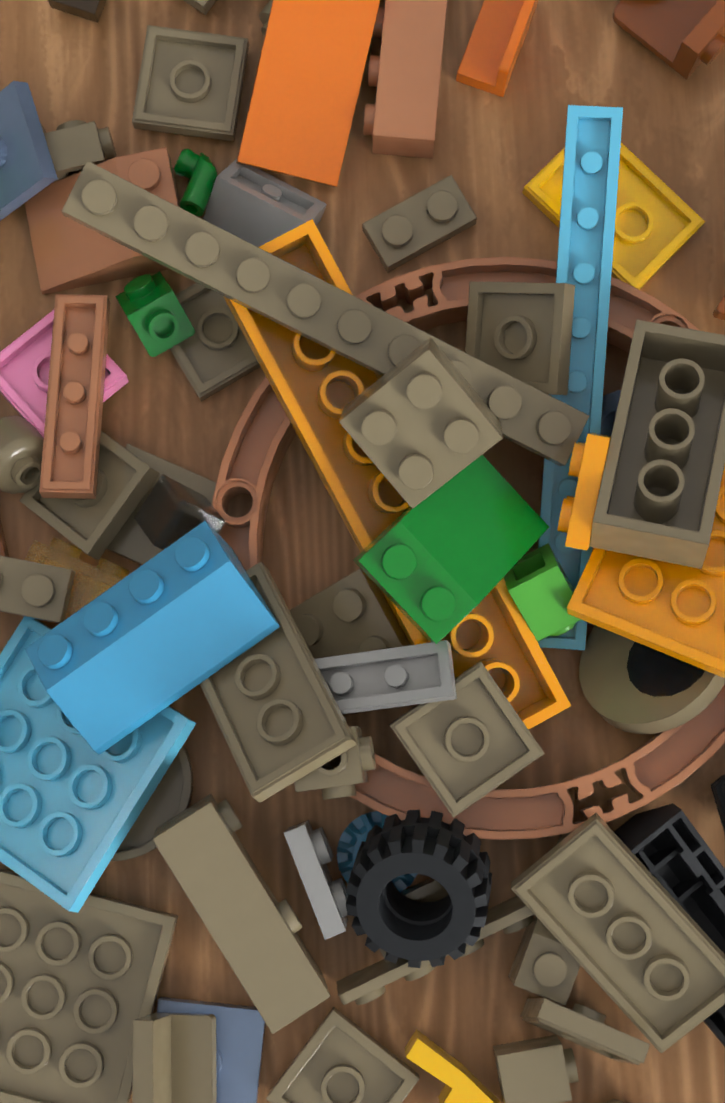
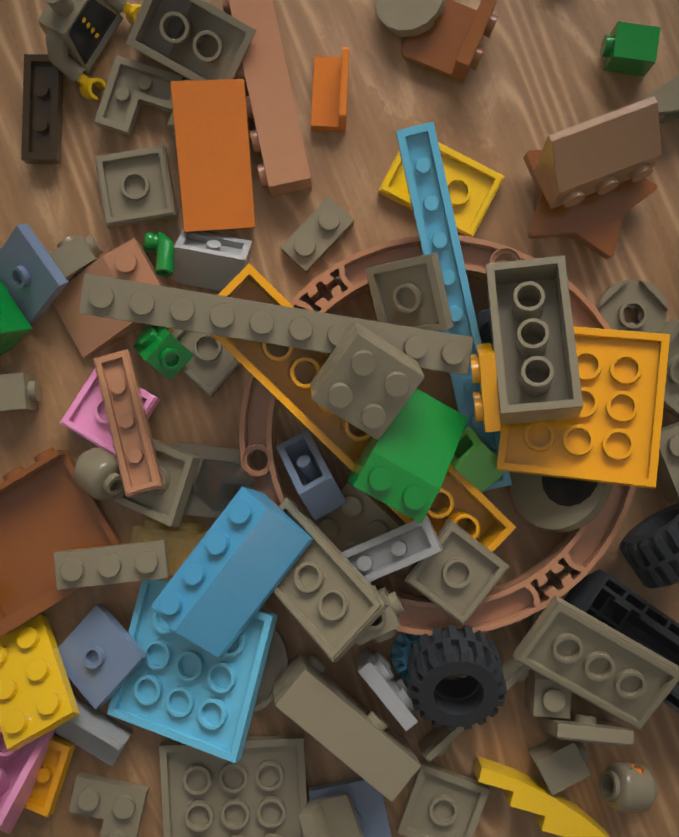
camera: 20 degrees left, 5 degrees up
(305, 544) = (311, 475): none -> sand blue brick

